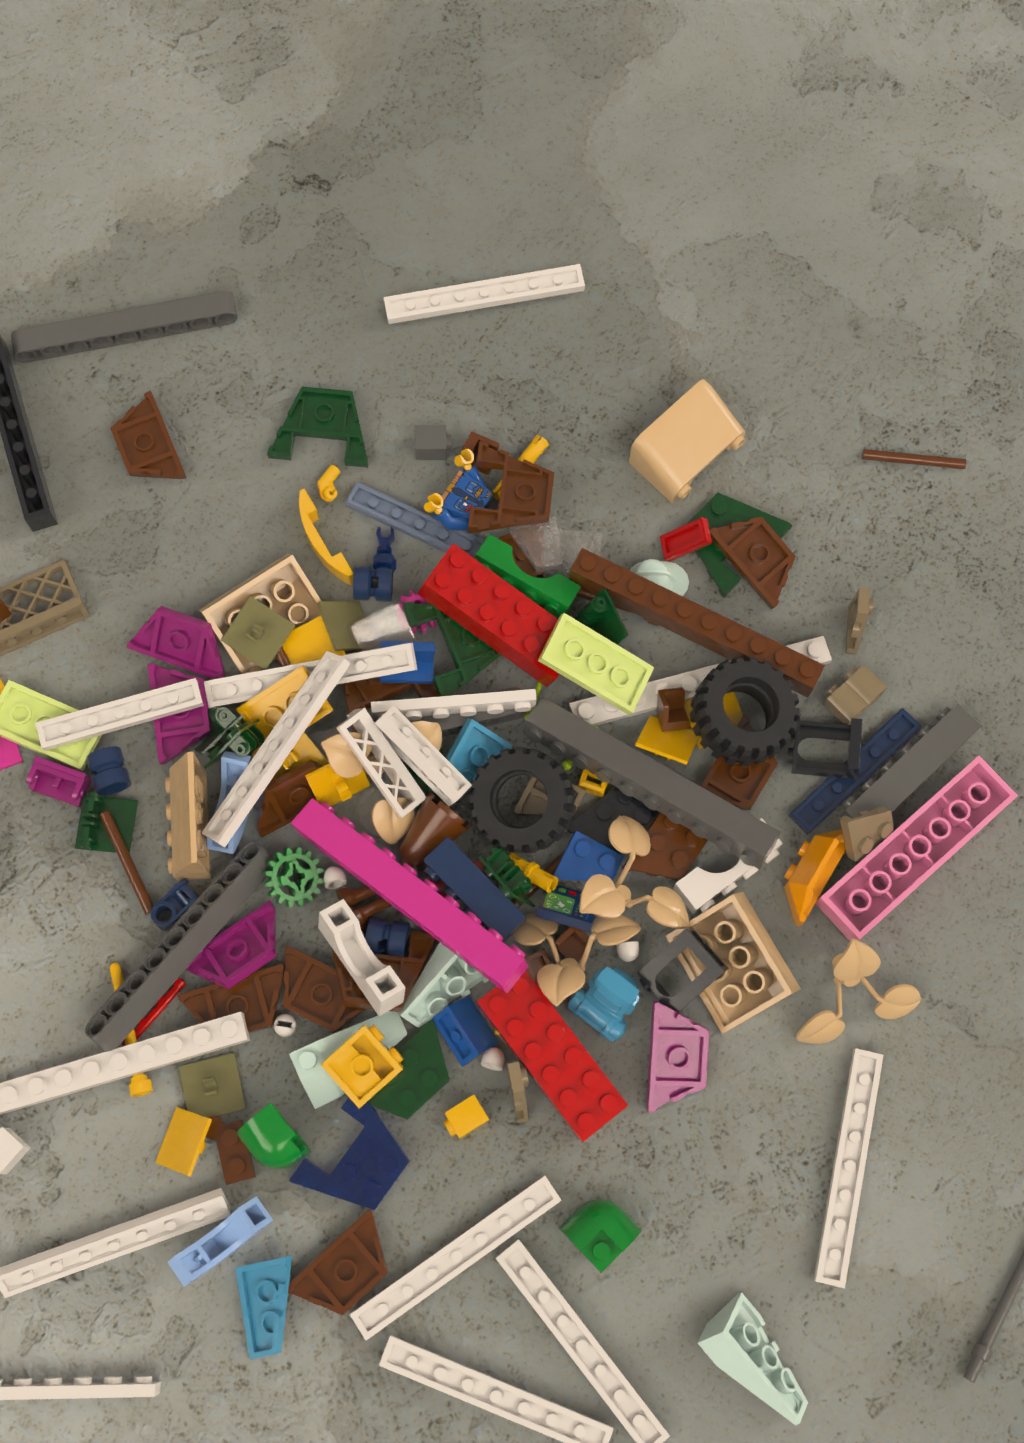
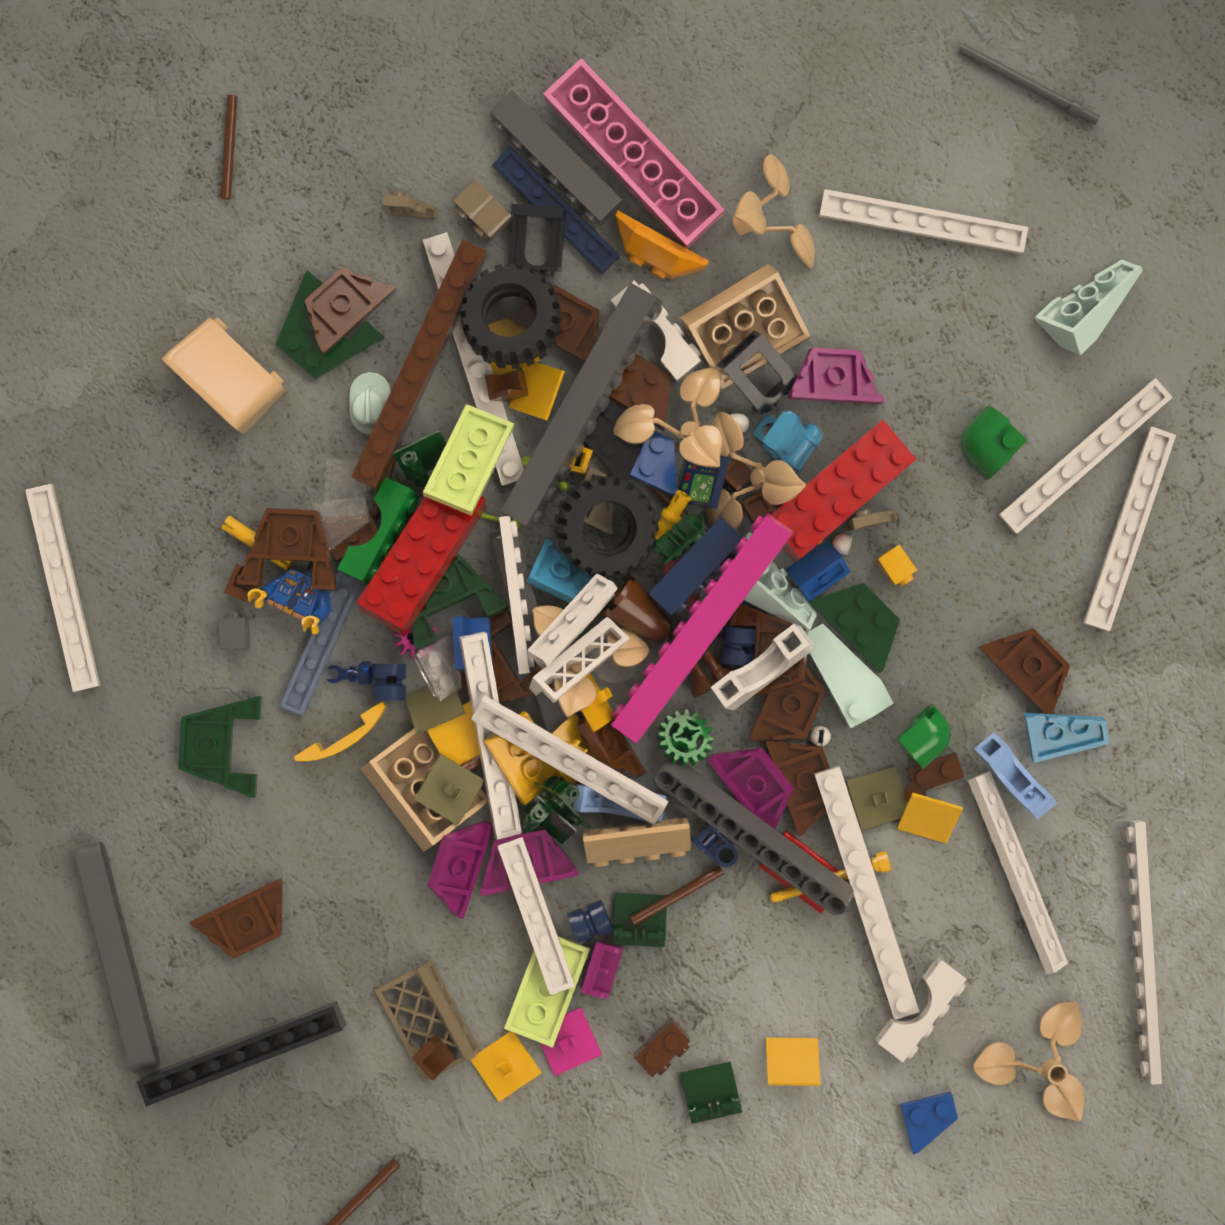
camera: 90 degrees left, 15 degrees up
(325, 484) = (284, 736): yellow arm -> none
(334, 878) = (682, 700): white hinge -> none
(363, 1064) = (857, 659): yellow plate -> none
(365, 1169) = (944, 653): clear blue wing -> none
(455, 1258) = (1016, 568): white plate -> none
(685, 539) = (330, 375): red tile -> none
(866, 831) = (621, 198): dark tan wing -> none

